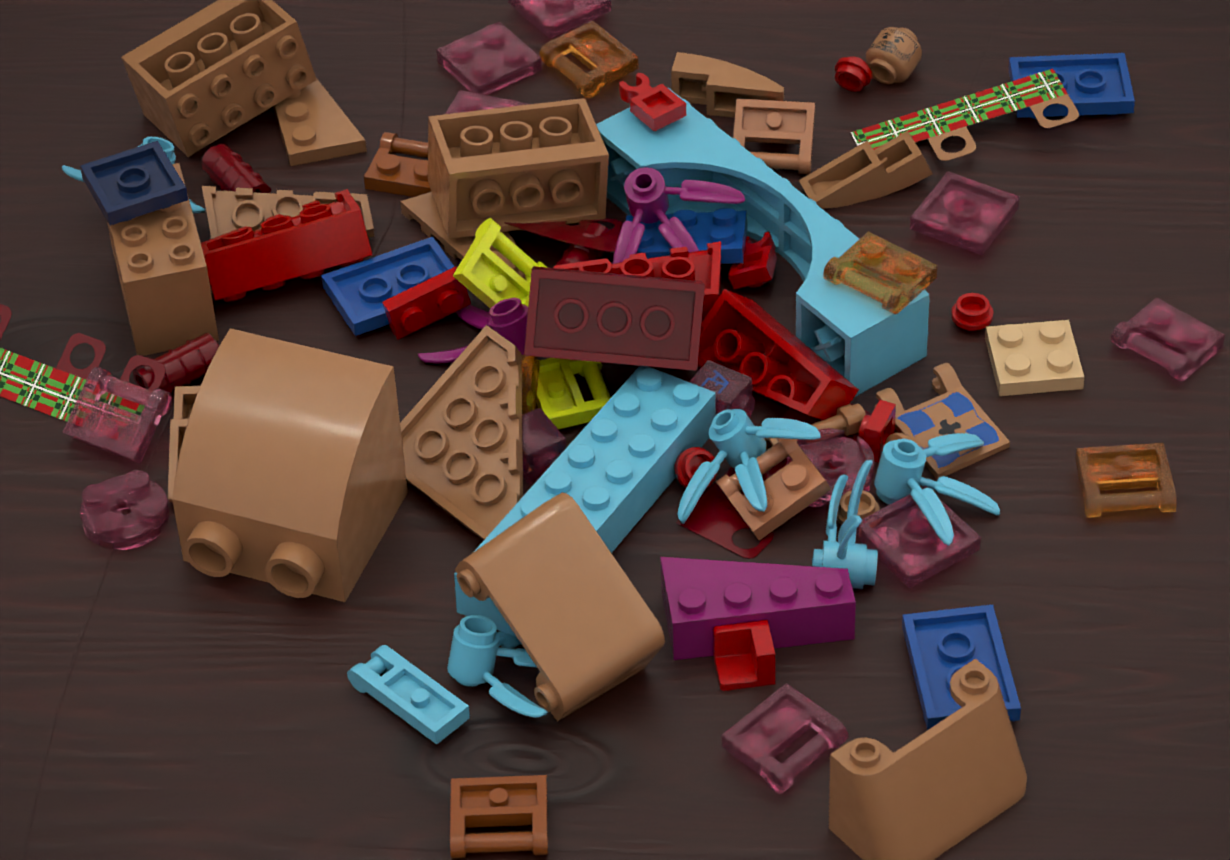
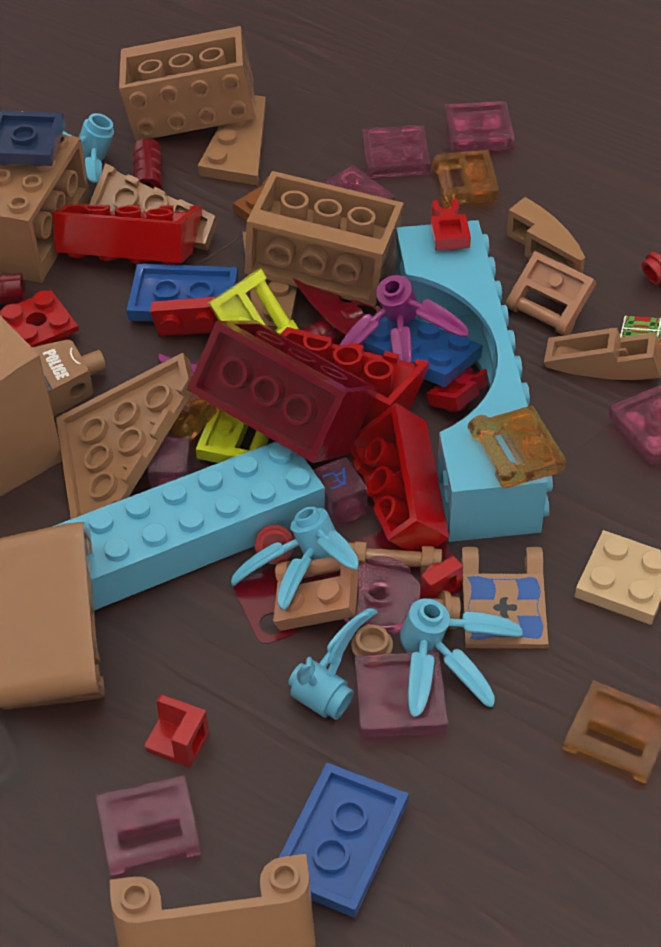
camera: 30 degrees right, 5 degrees up
(798, 601) = (236, 696): magenta wedge -> none
(972, 312) = (602, 512): red plate -> none

